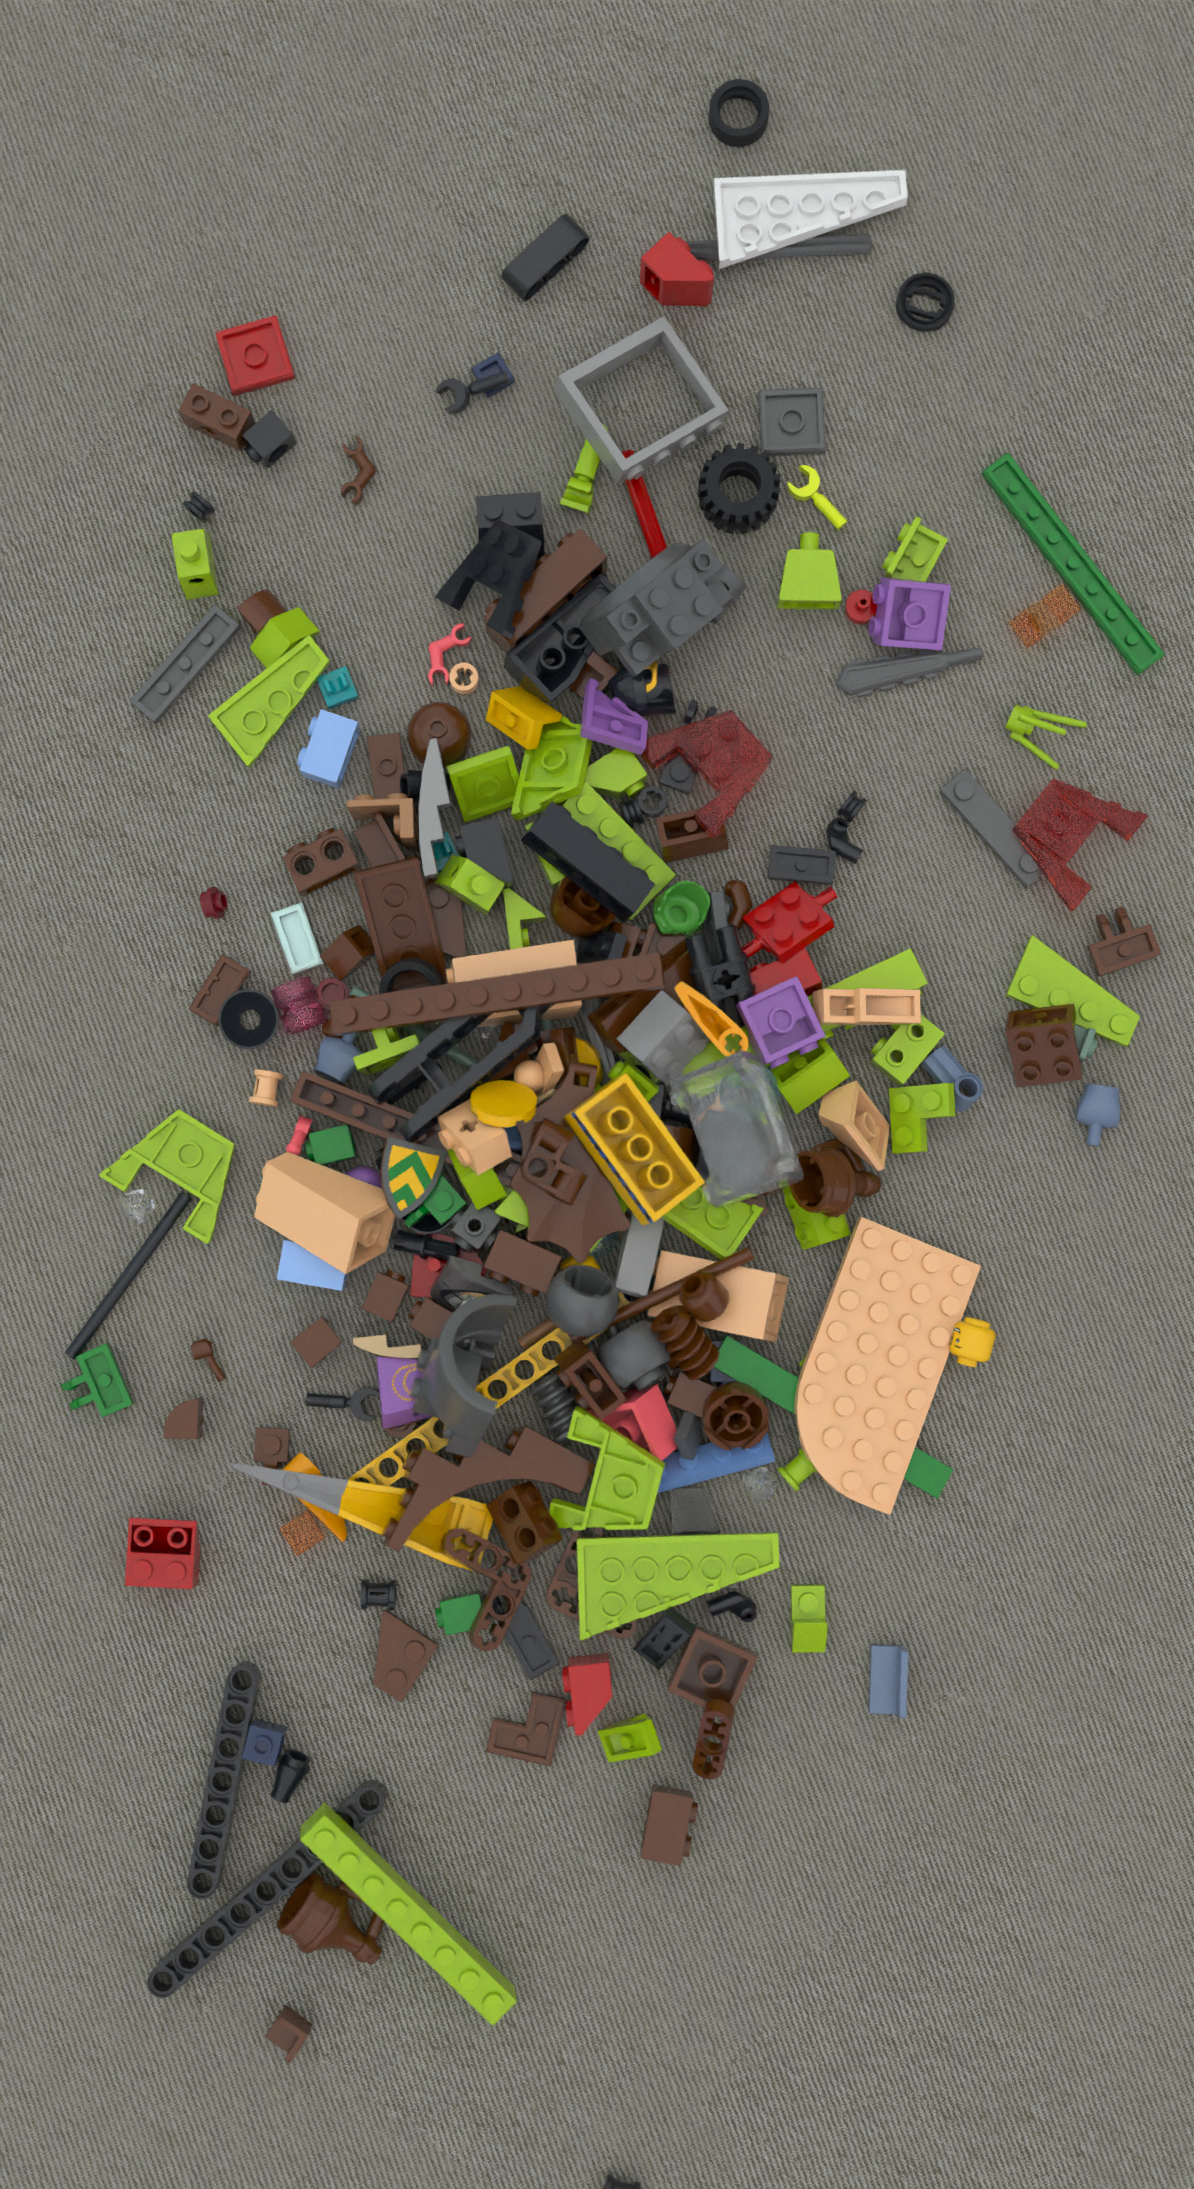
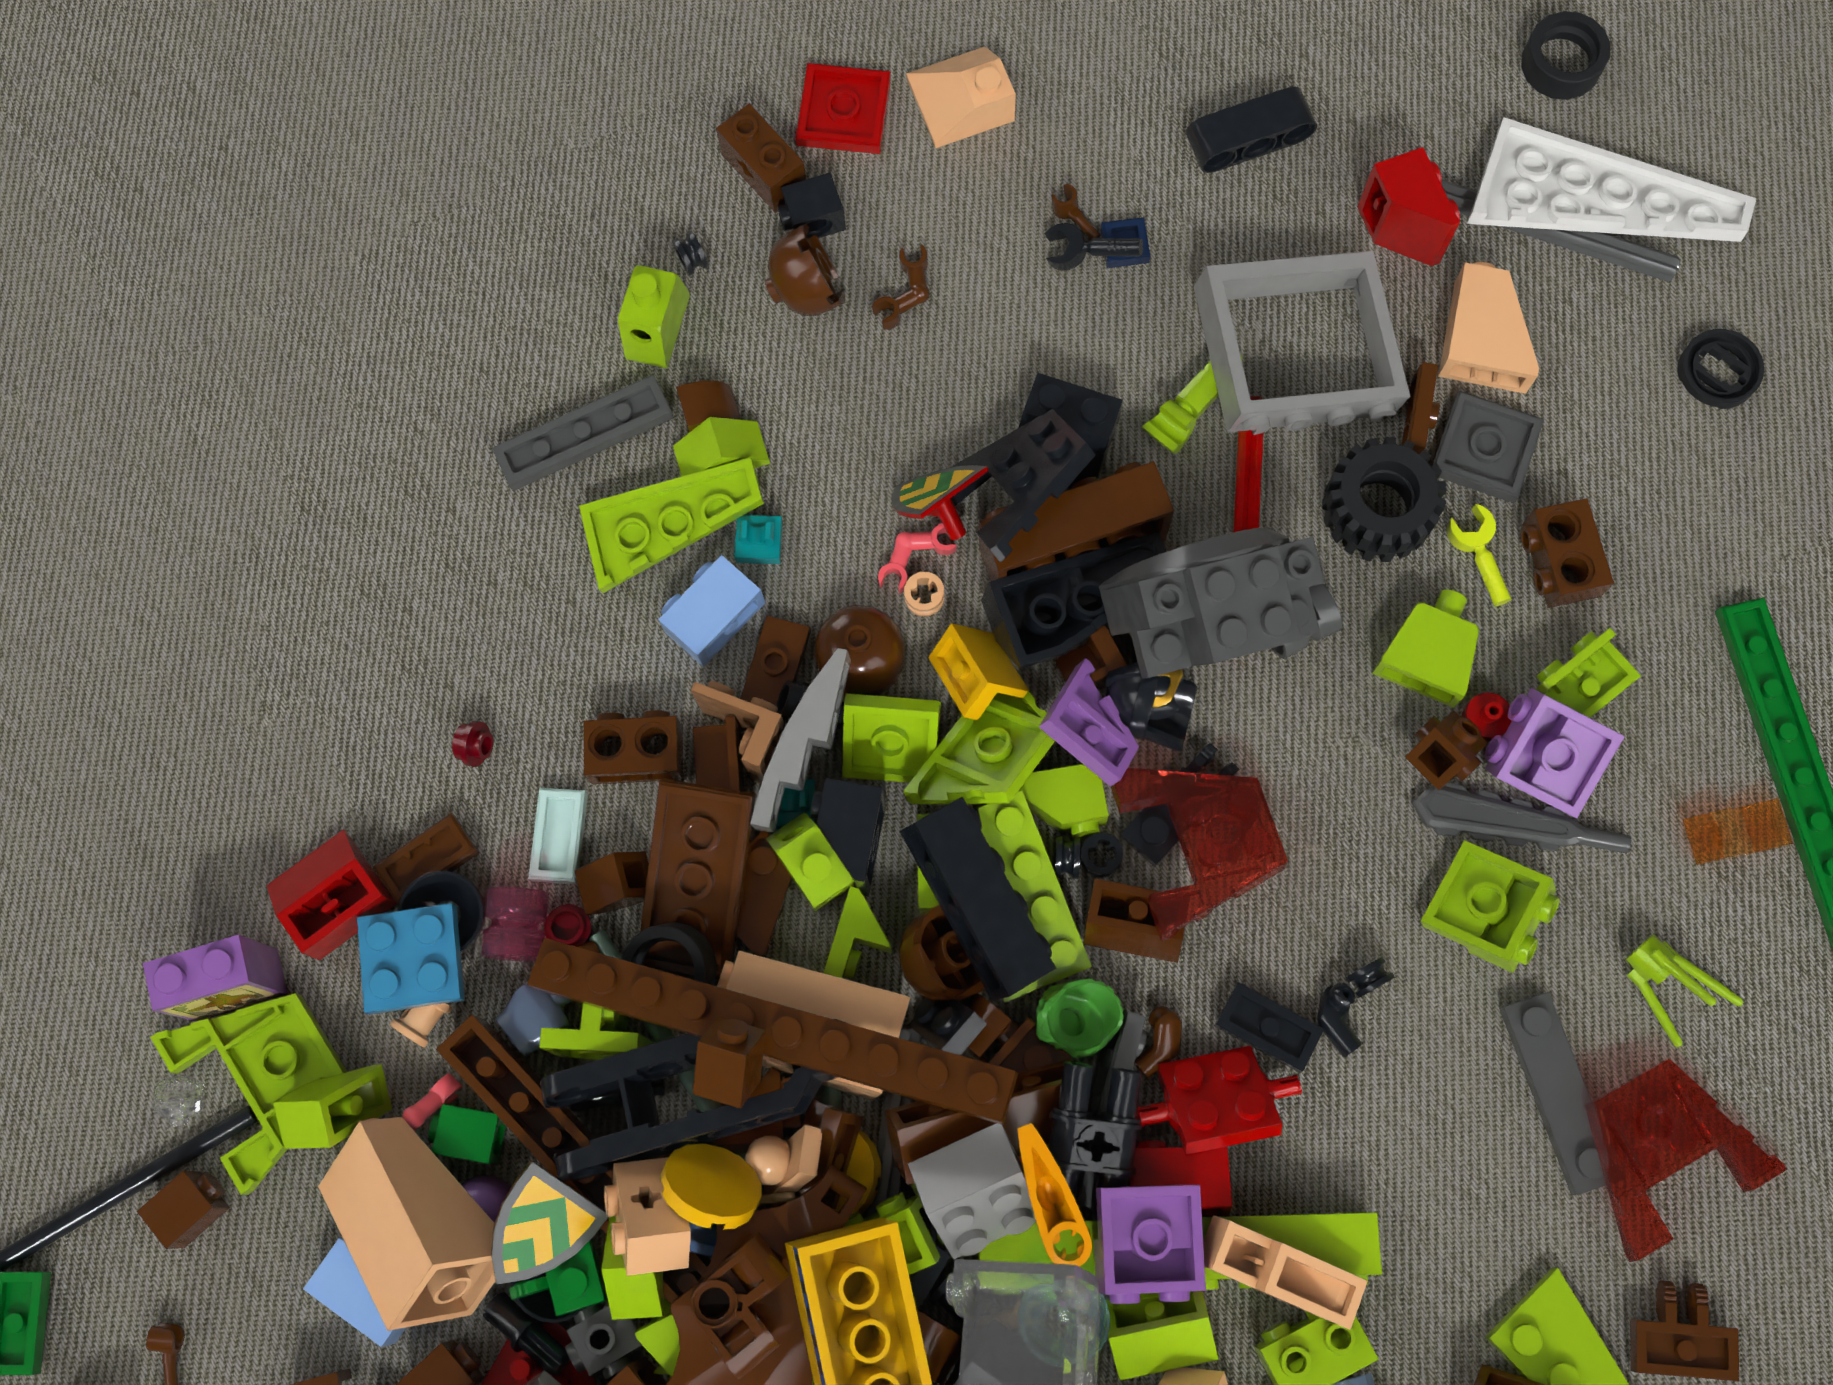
camera: 30 degrees right, 10 degrees down
(126, 1119) = (214, 978): none -> medium lavender brick
(168, 1038) = (326, 894): none -> red slope
(175, 1267) = (184, 1208): none -> reddish brown brick
(239, 1166) = (331, 1107): none -> lime slope
(244, 1054) = (410, 959): none -> dark azure plate
(285, 491) = (802, 274): none -> reddish brown cylinder
(334, 311) = (963, 95): none -> light nougat slope
(442, 609) = (932, 496): none -> shield
(447, 367) = (1070, 210): none -> reddish brown hand
(484, 1022) = (729, 1062): none -> reddish brown brick
(739, 414) = (1421, 410): none -> reddish brown plate
(761, 341) = (1487, 332): none -> light nougat slope
(843, 640) = (1447, 749): none -> reddish brown brick
(878, 472) = (1579, 552): none -> reddish brown brick
(909, 729) = (1492, 906): none -> lime plate

